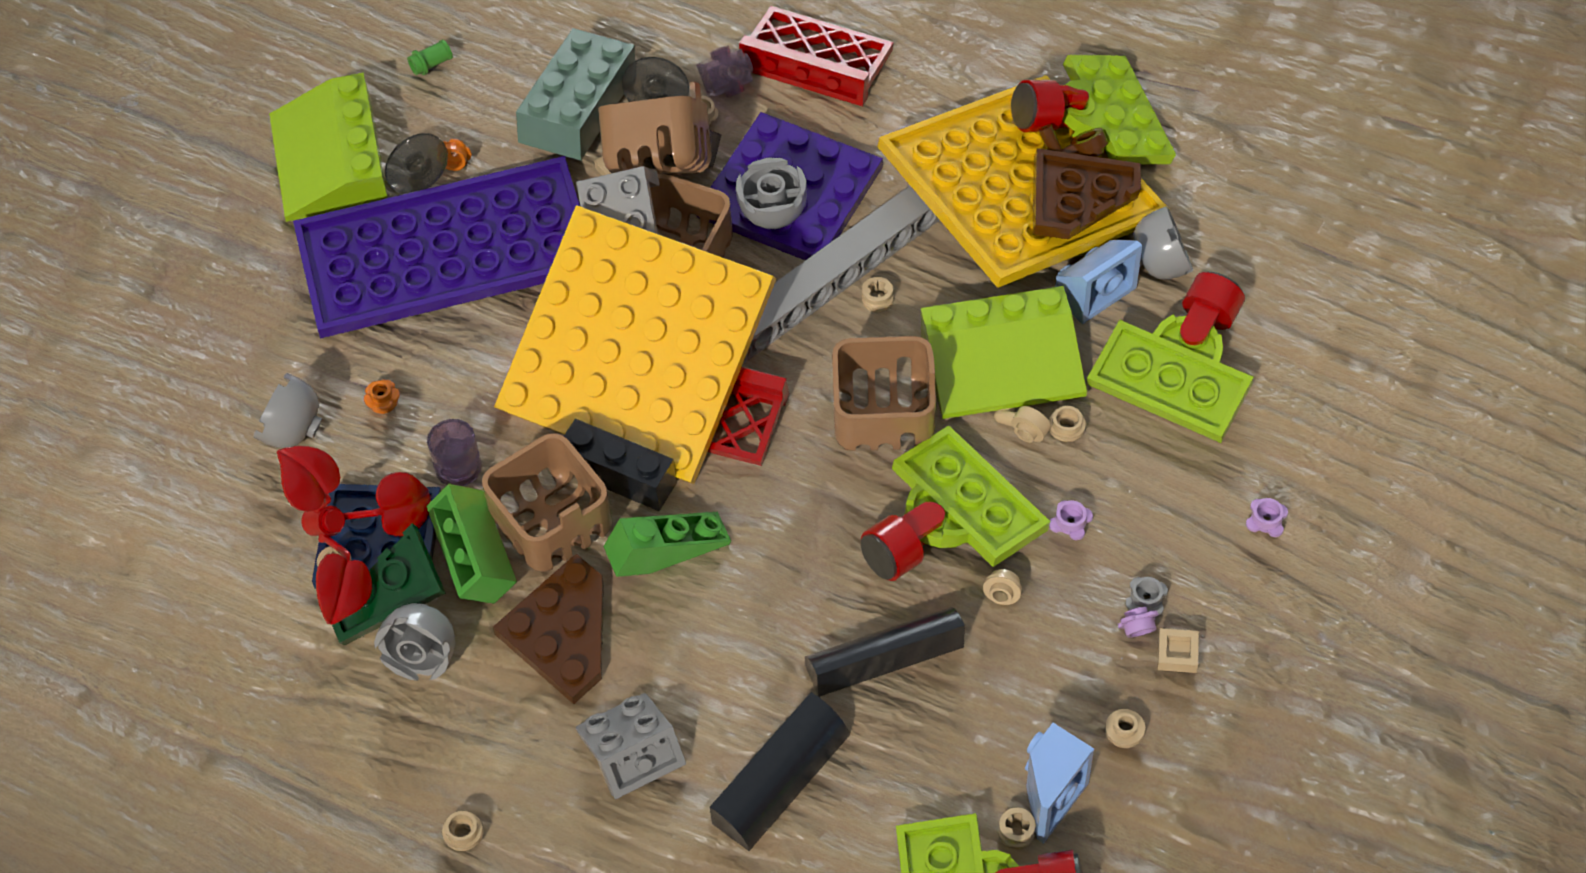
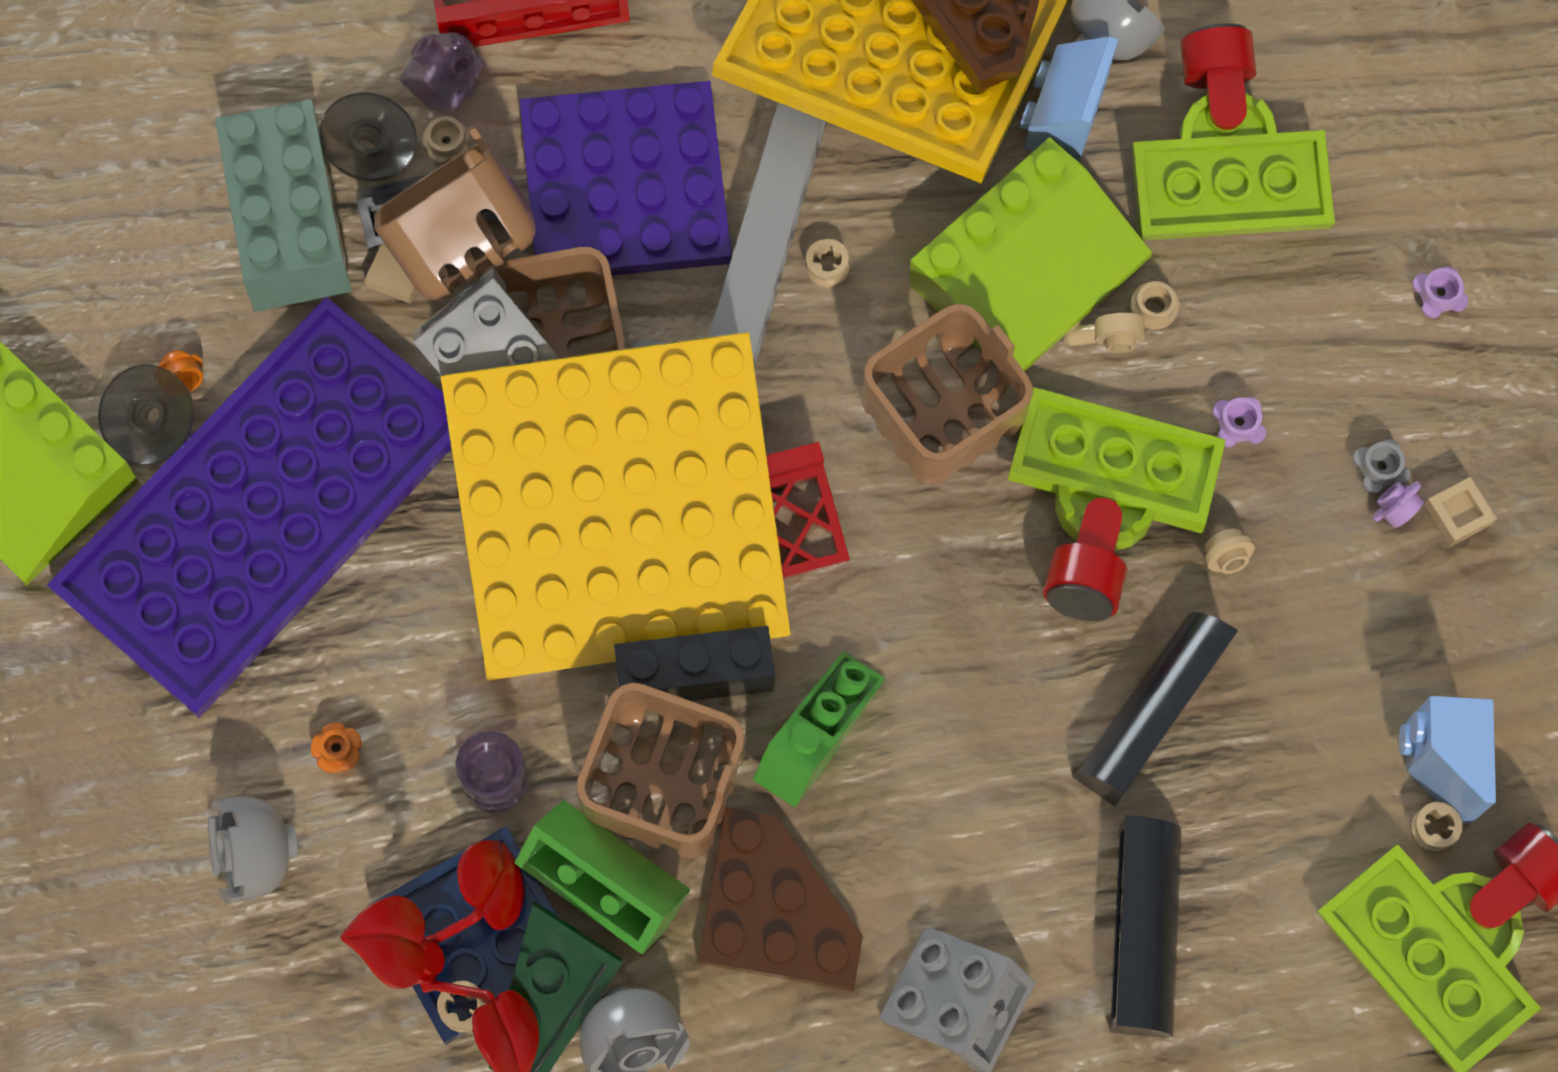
camera: 40 degrees left, 15 degrees up
(429, 57) = (44, 255): bright green pin -> none
(771, 193) = (638, 210): light grey cylinder -> none
(1125, 738) = (1460, 650): tan plate -> none

